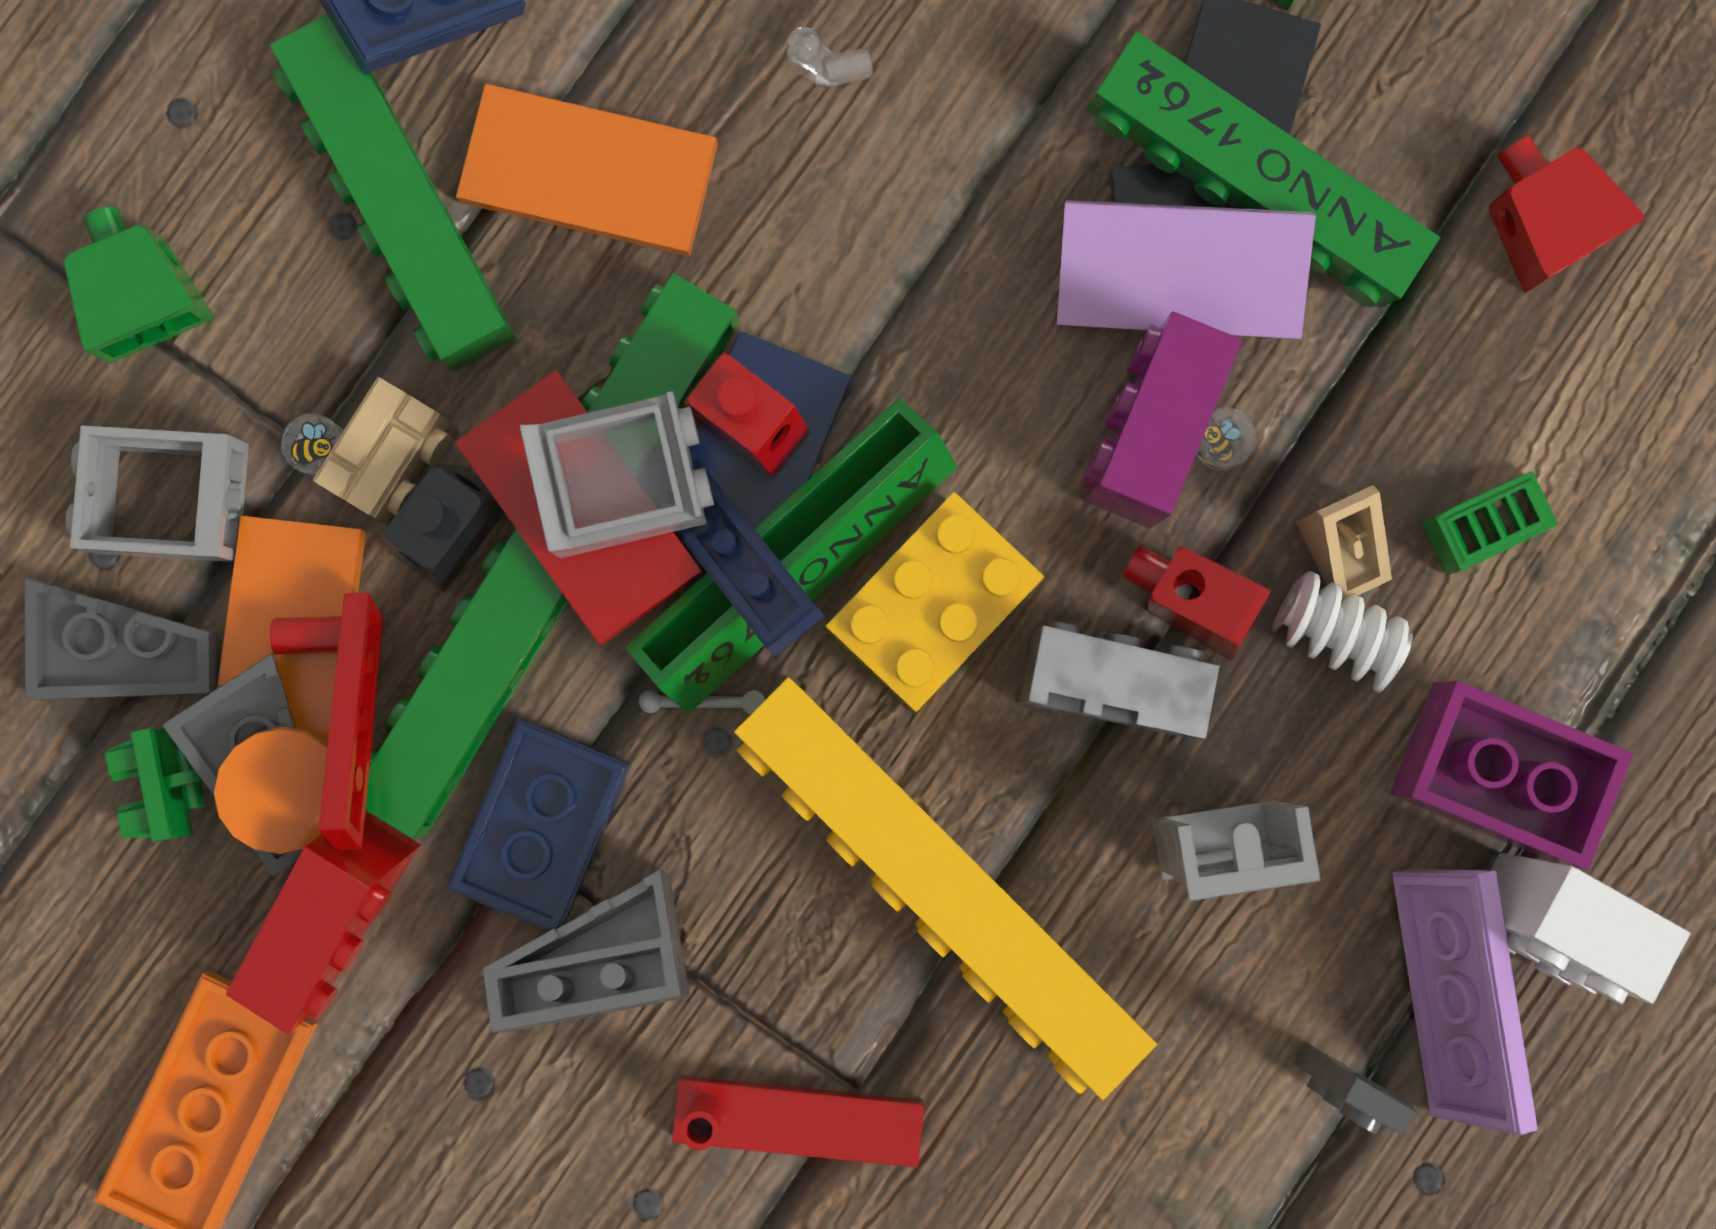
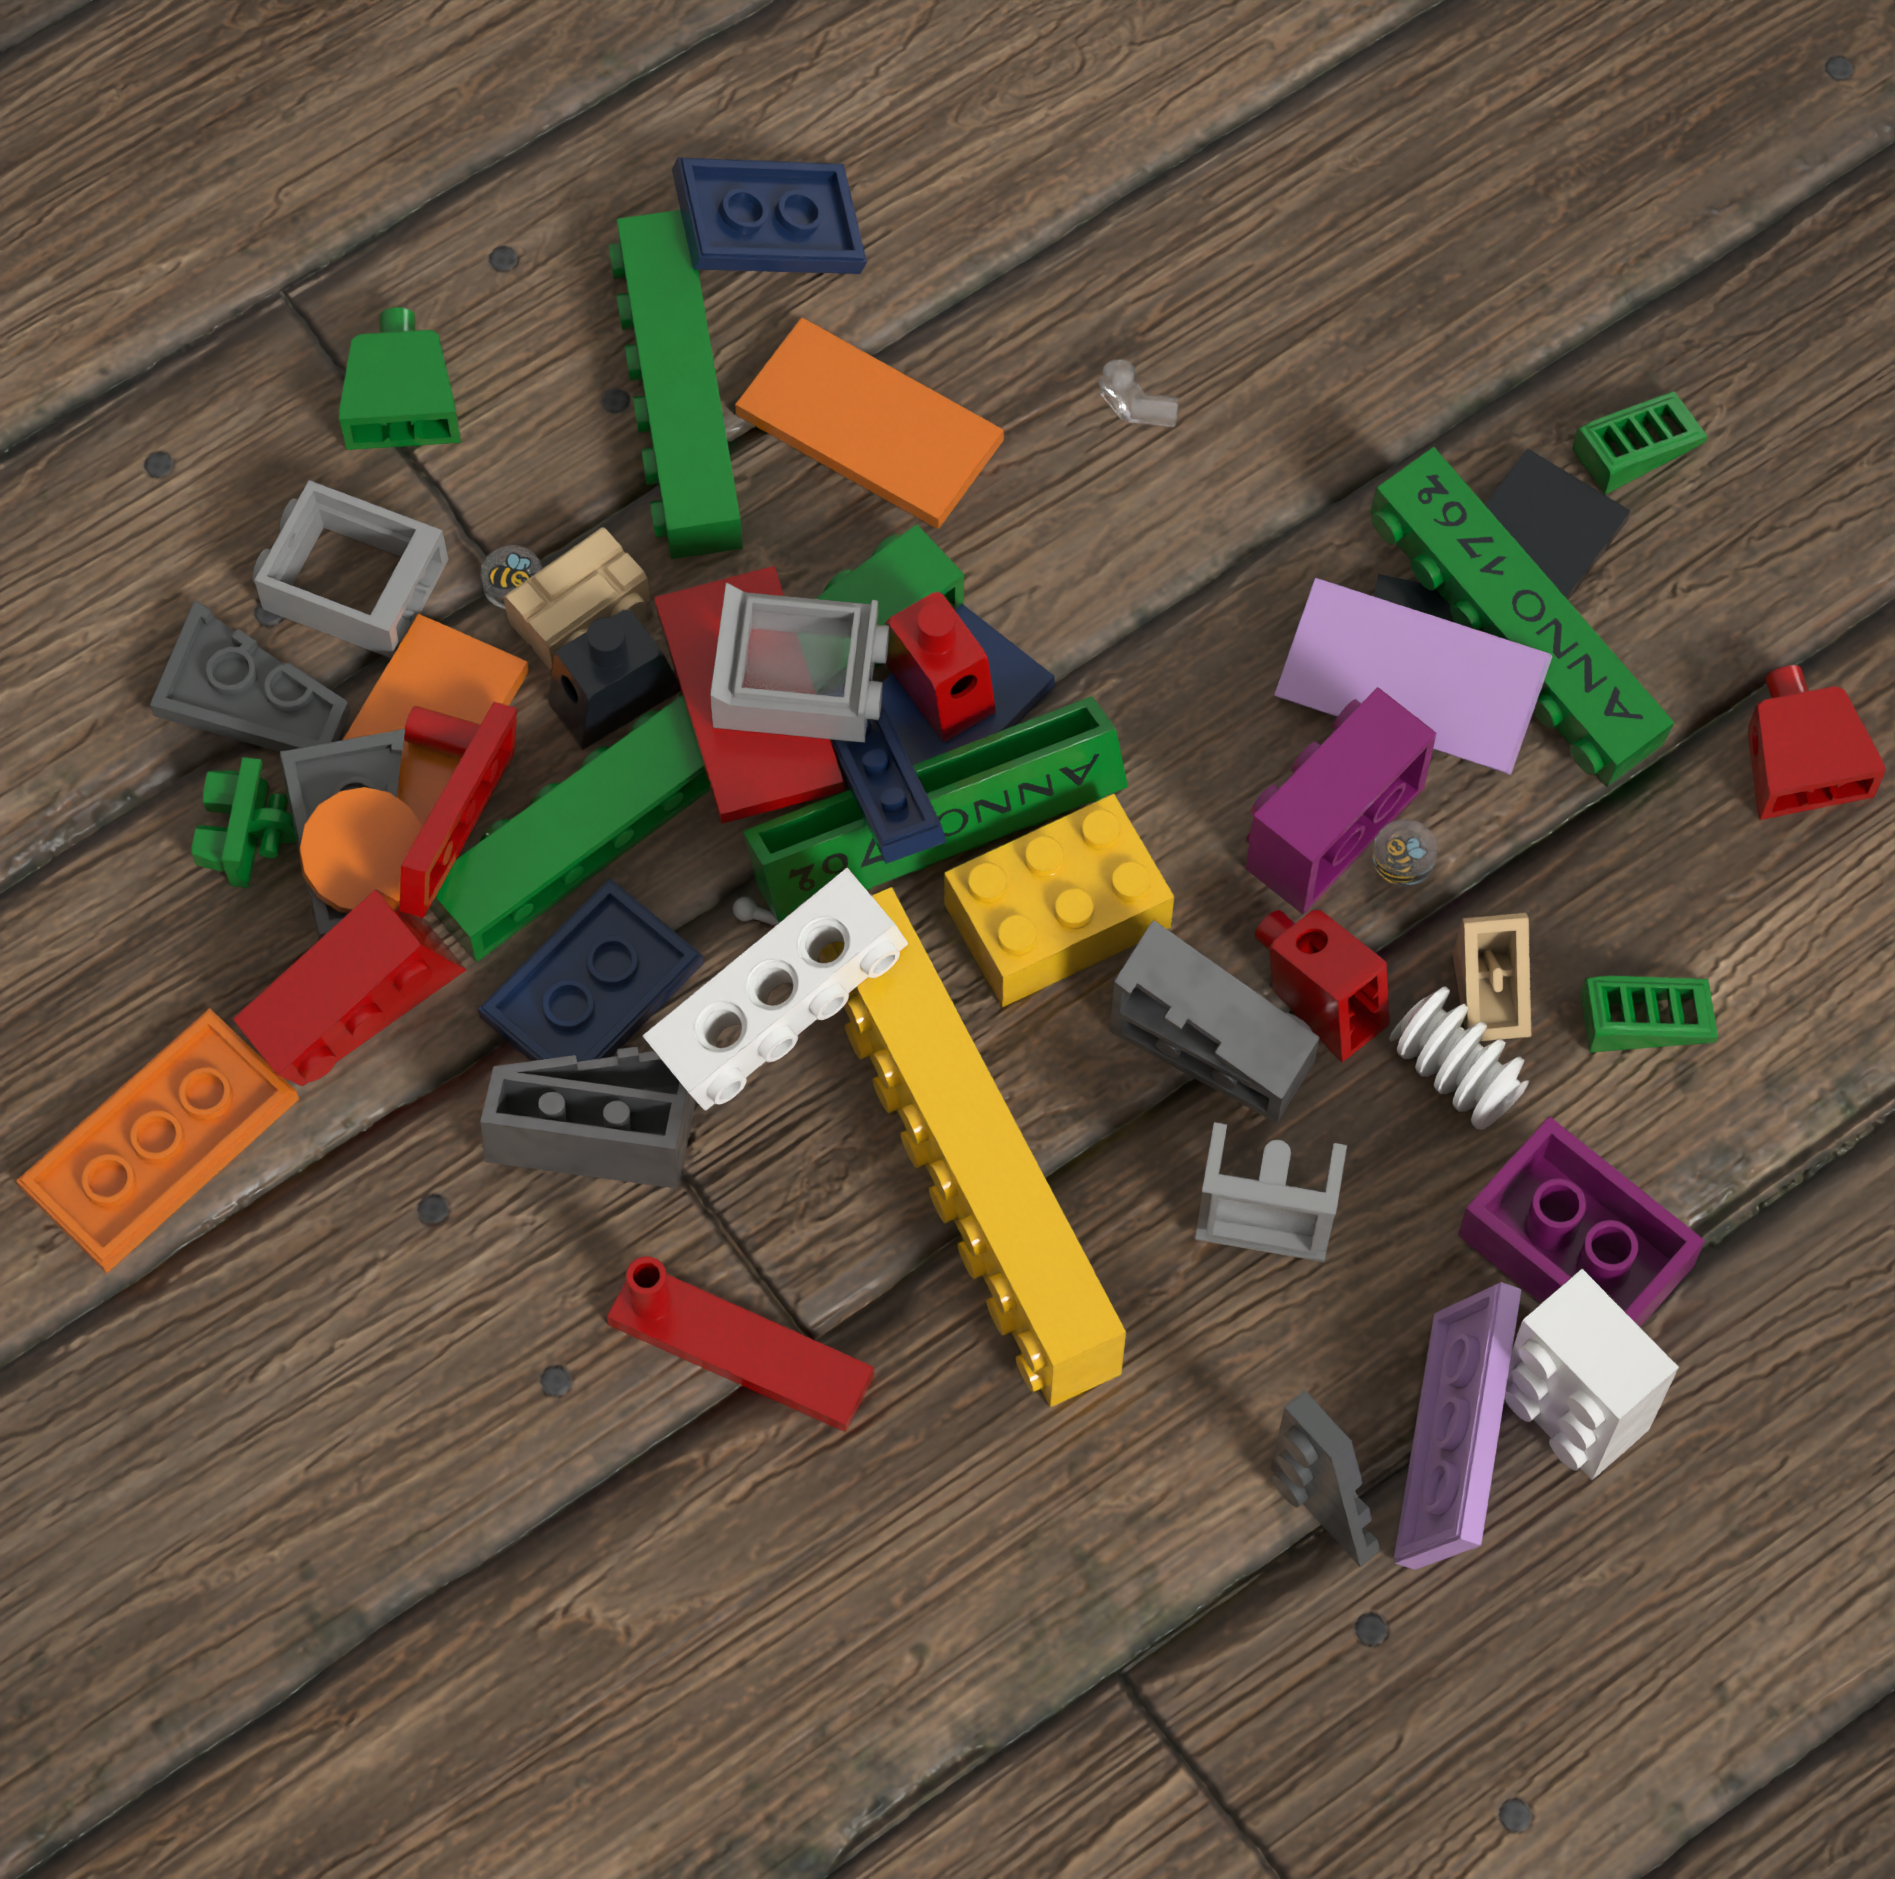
camera: 20 degrees right, 20 degrees down
(657, 903) = (784, 955): none -> white brick

